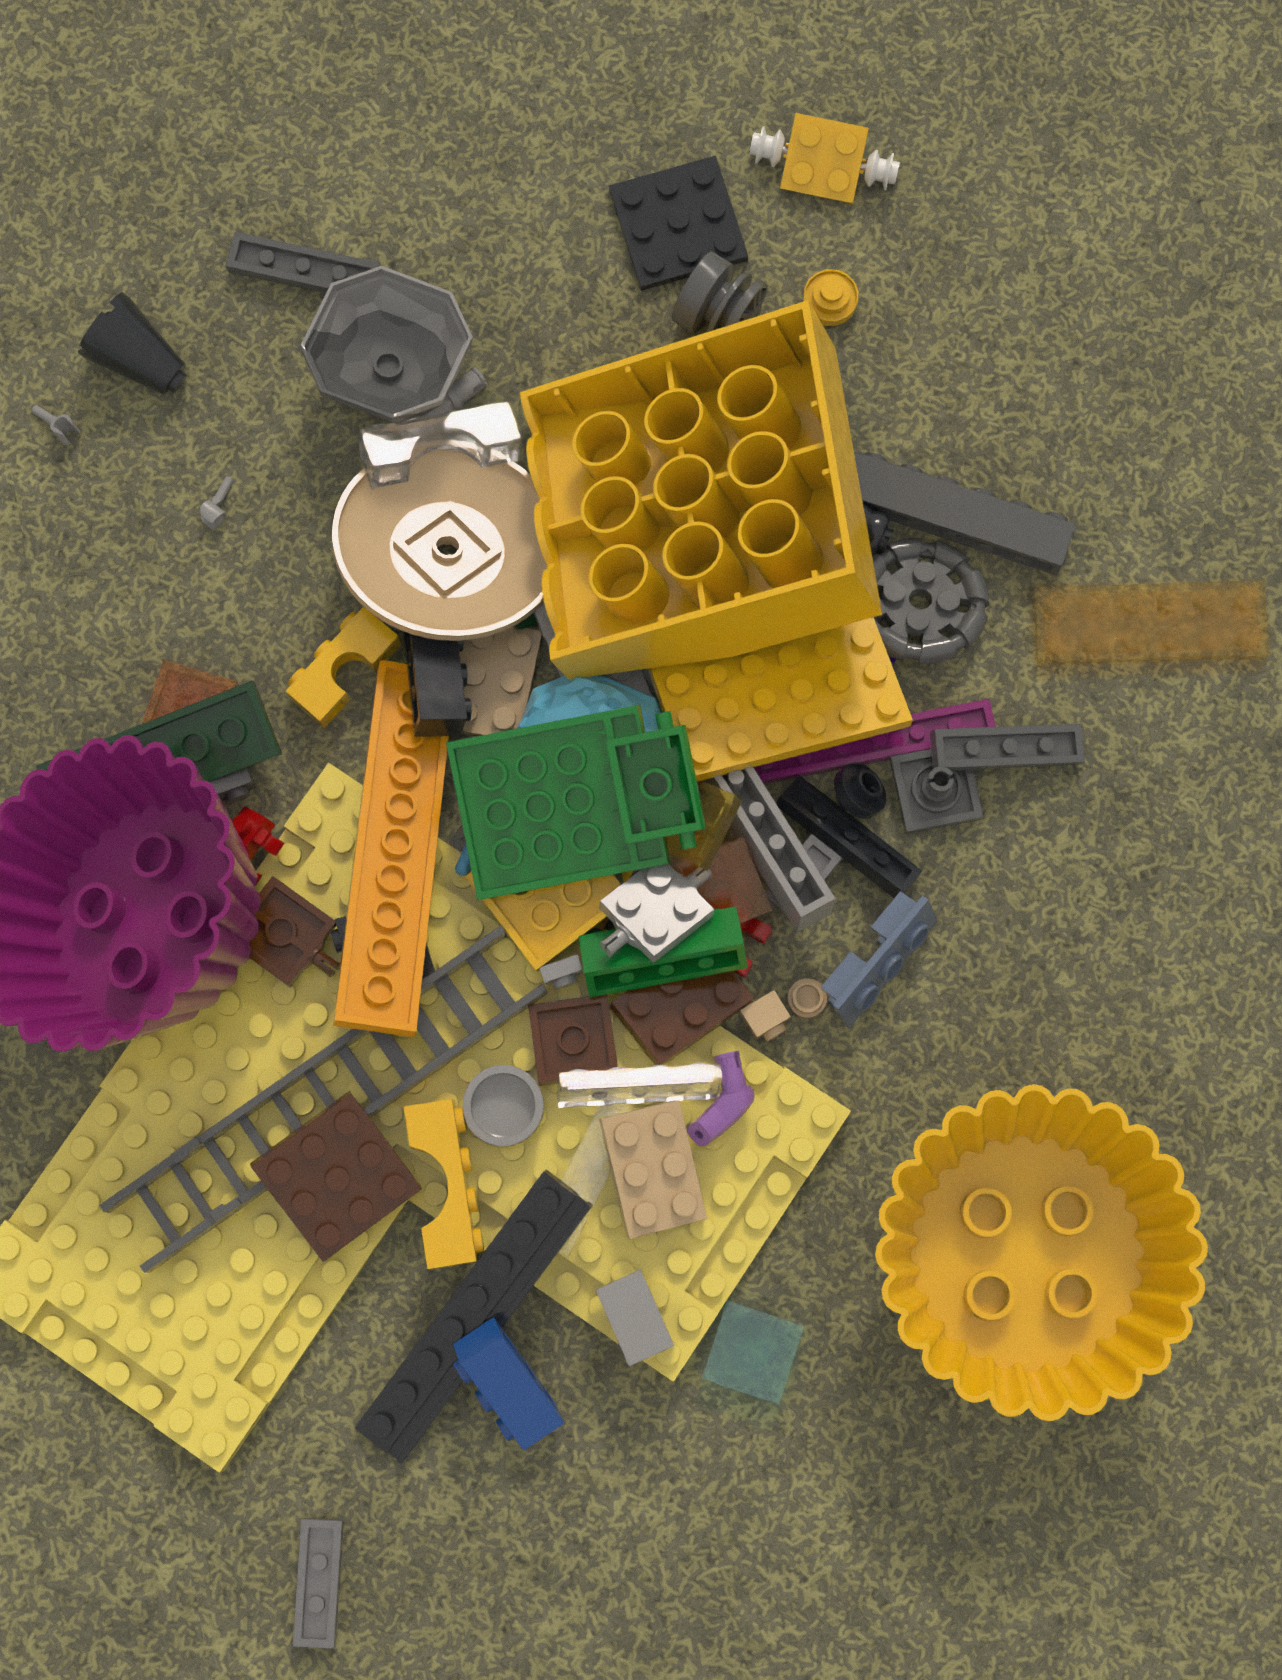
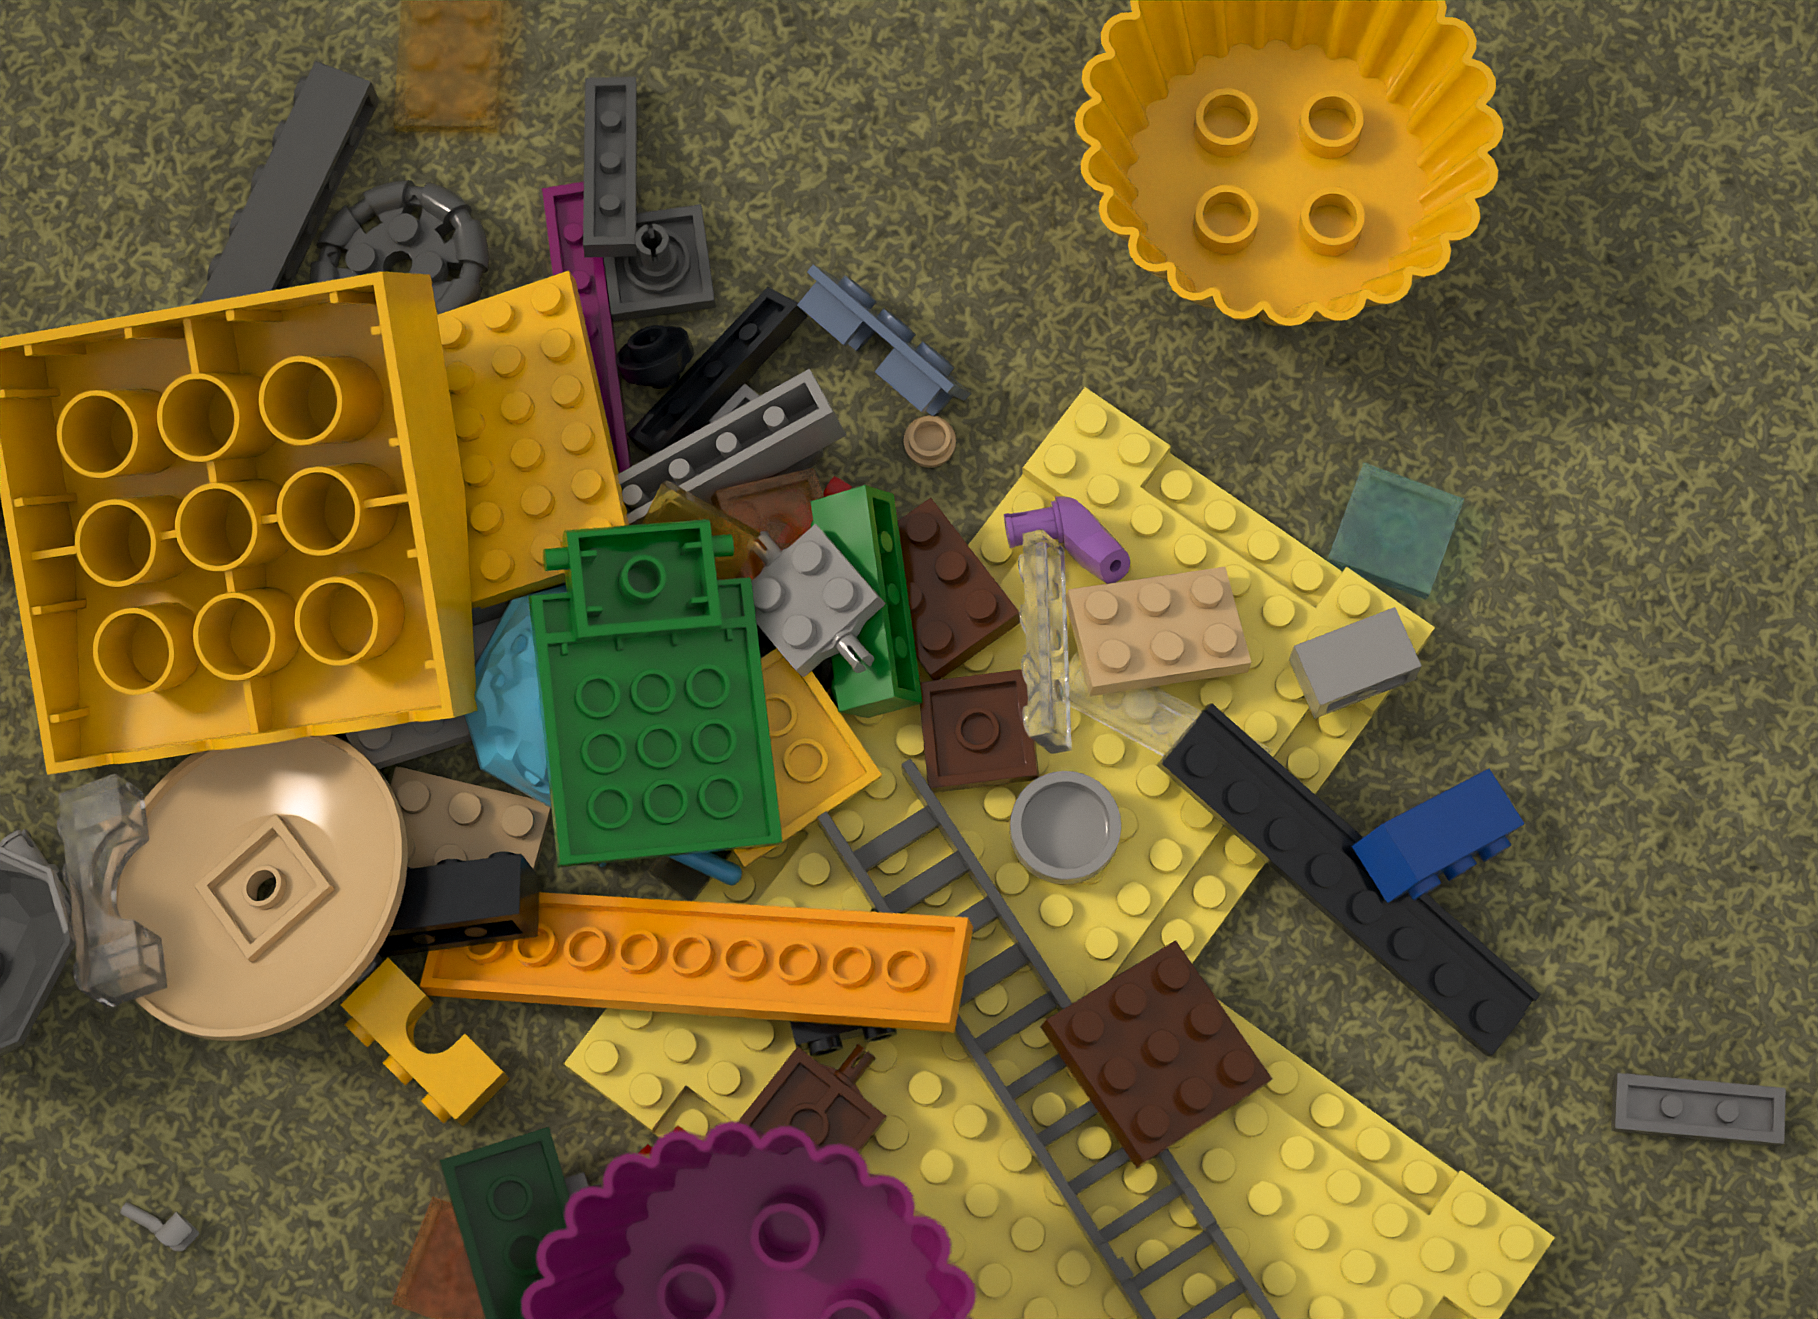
camera: 85 degrees left, 5 degrees down
(451, 1235) = (1239, 900): yellow arch -> none
(562, 972) = (886, 740): light grey plate -> none
(766, 1017) = (954, 489): tan plate -> none

